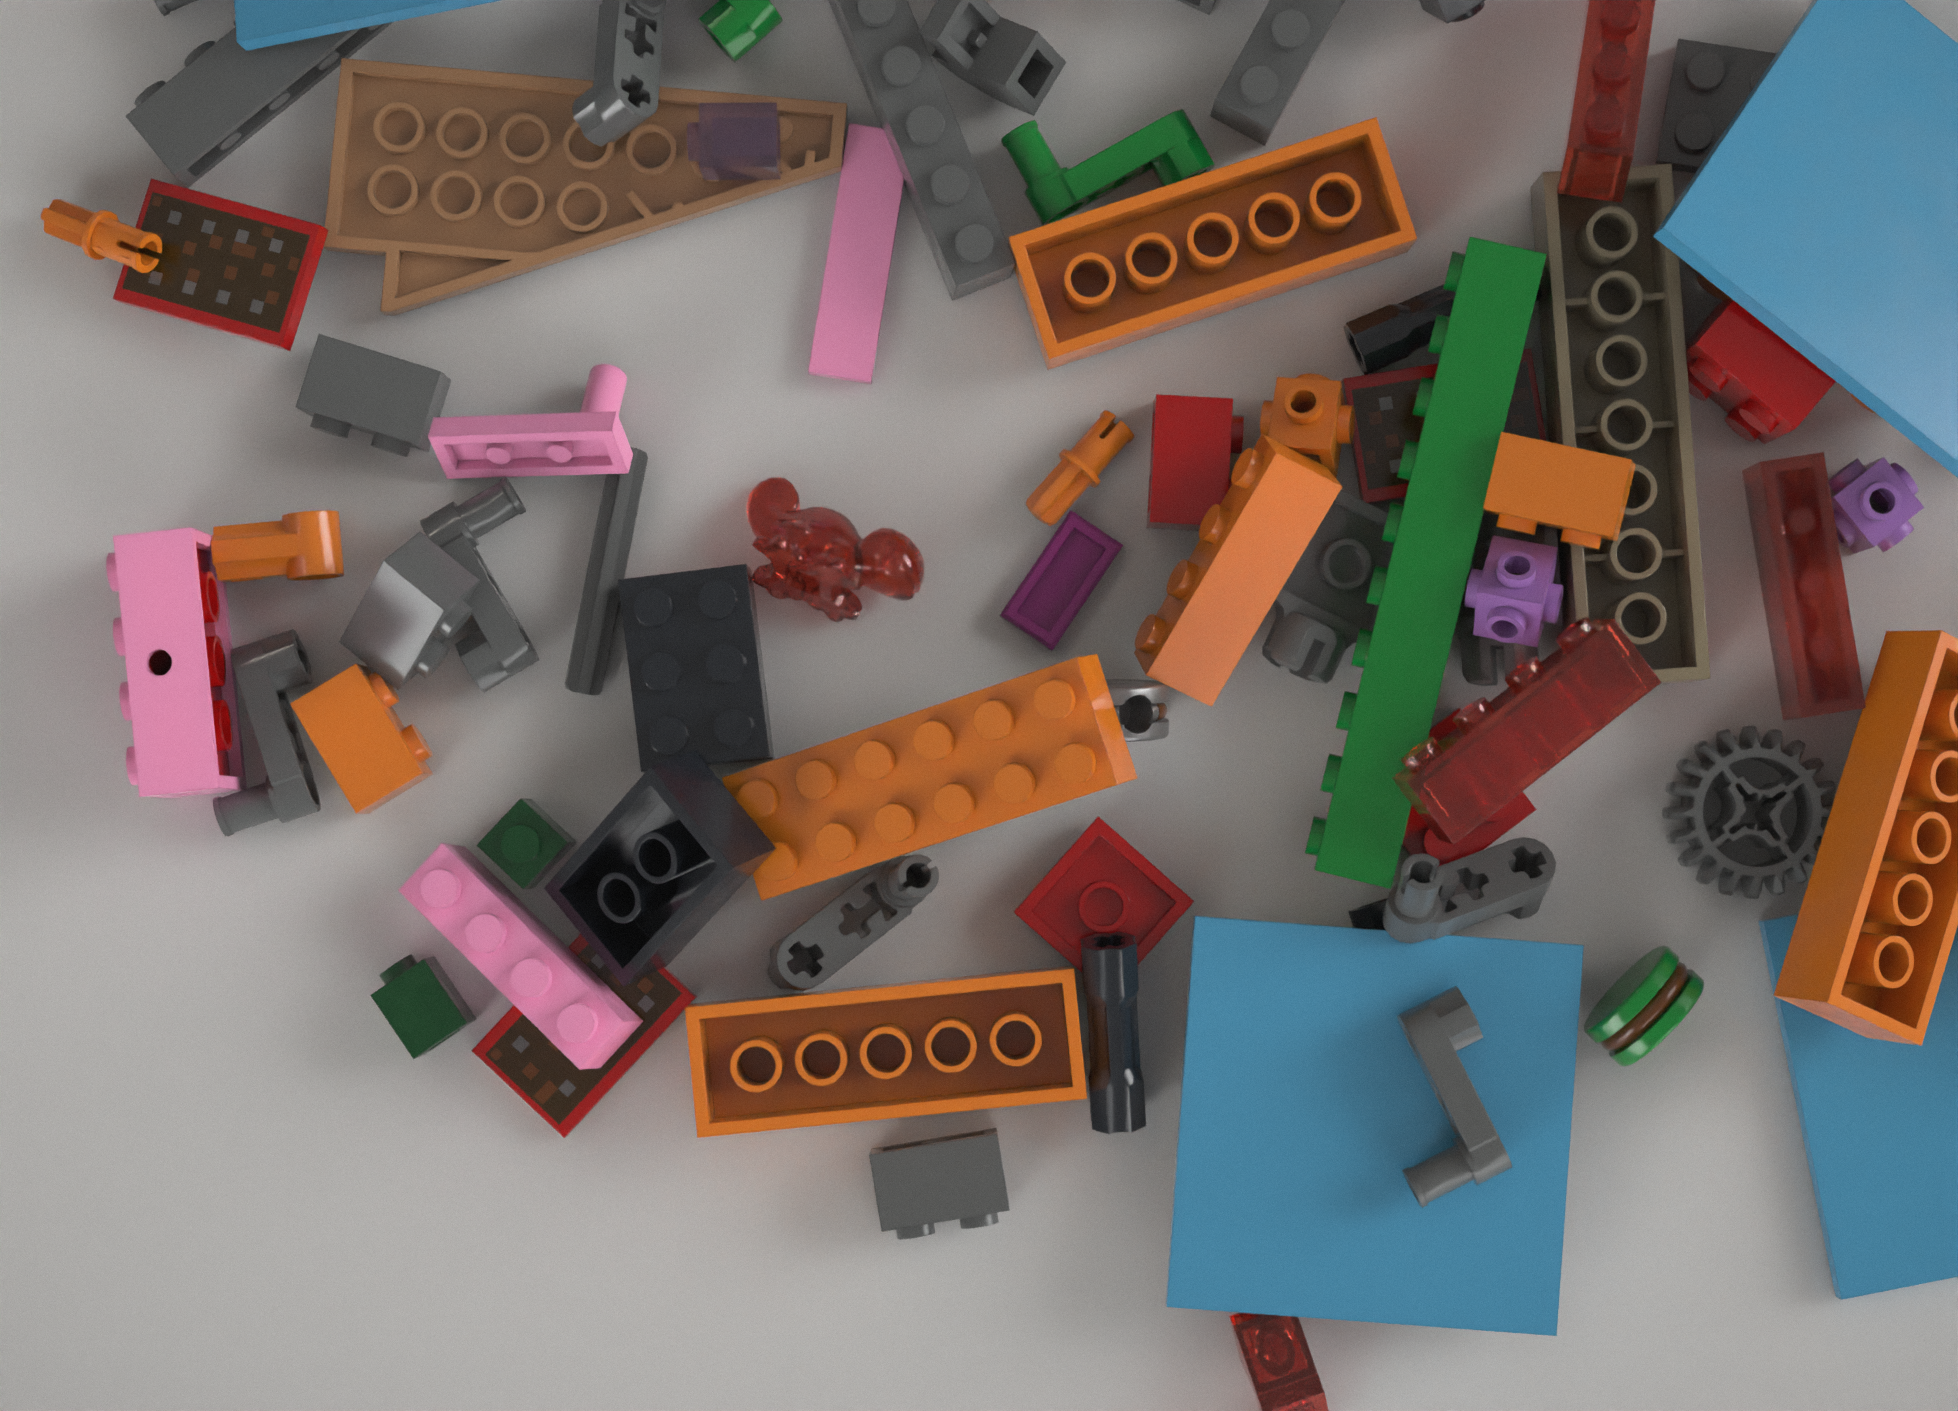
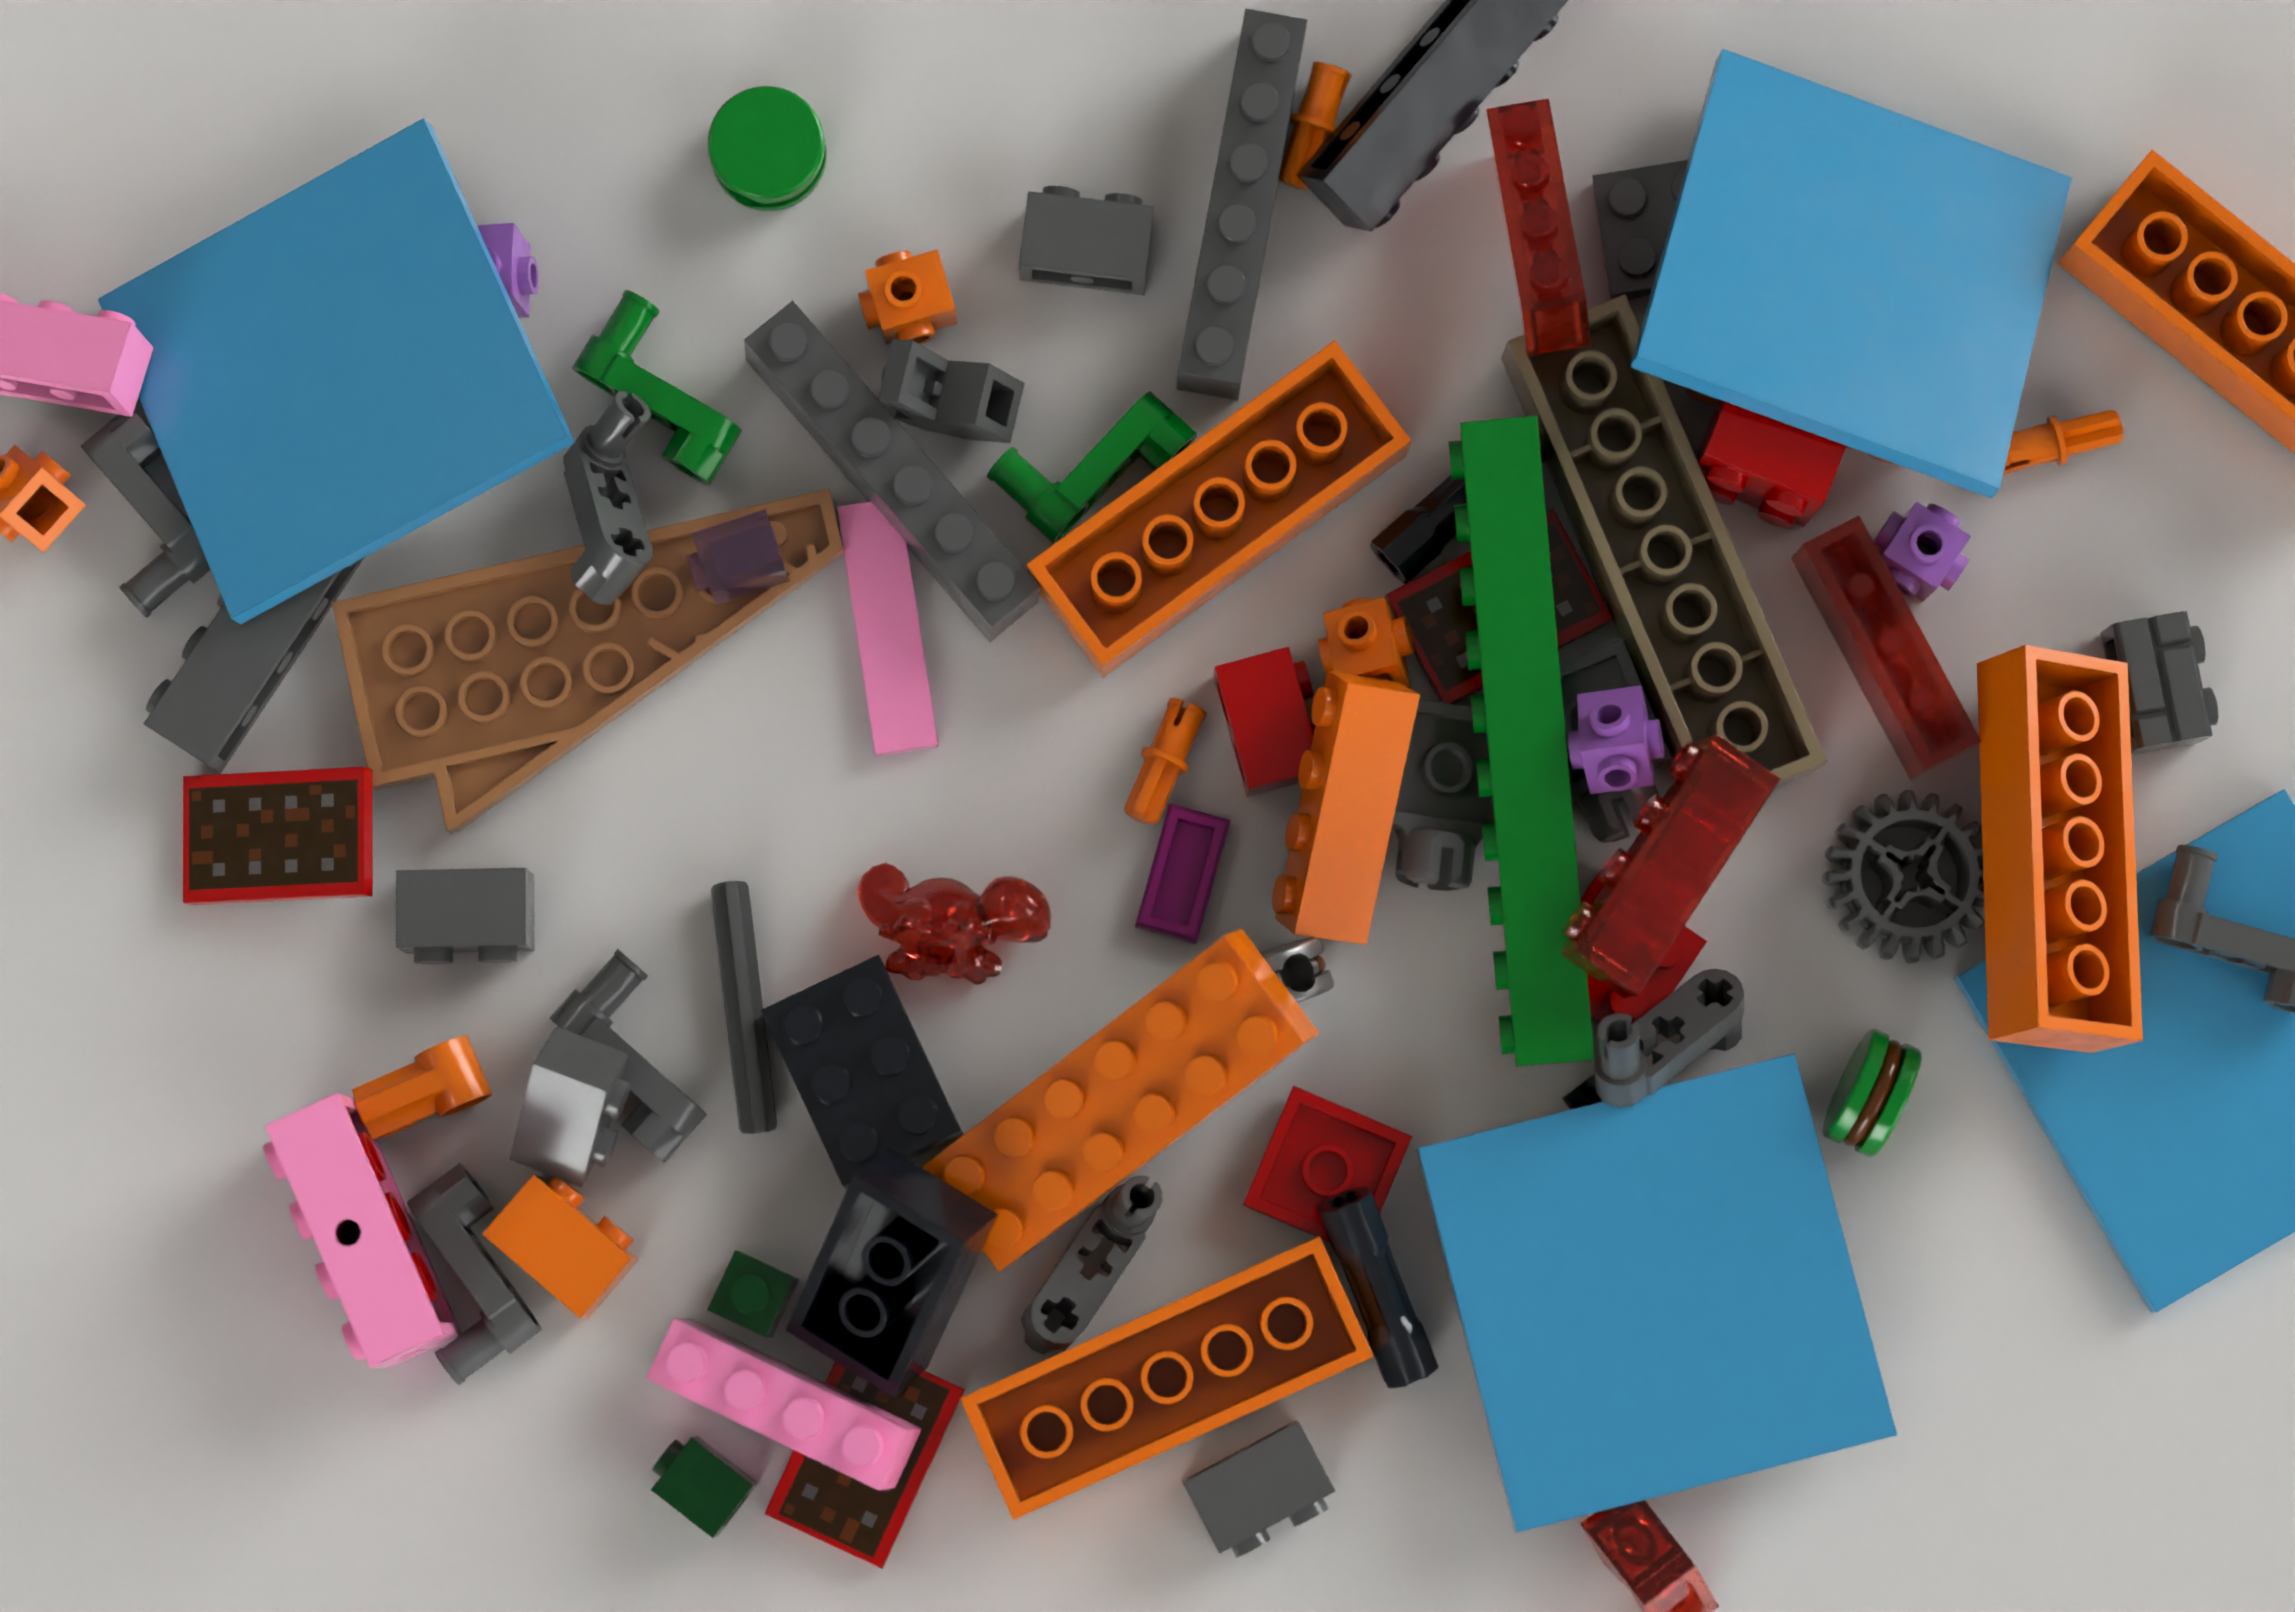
camera: 25 degrees left, 5 degrees down
(101, 234) = (152, 845): orange axle -> none
(540, 443) = (642, 905): bright pink piece -> none
(1435, 1035) = (1683, 1184): dark grey beam -> none
(1558, 489) = (1623, 630): orange brick -> none

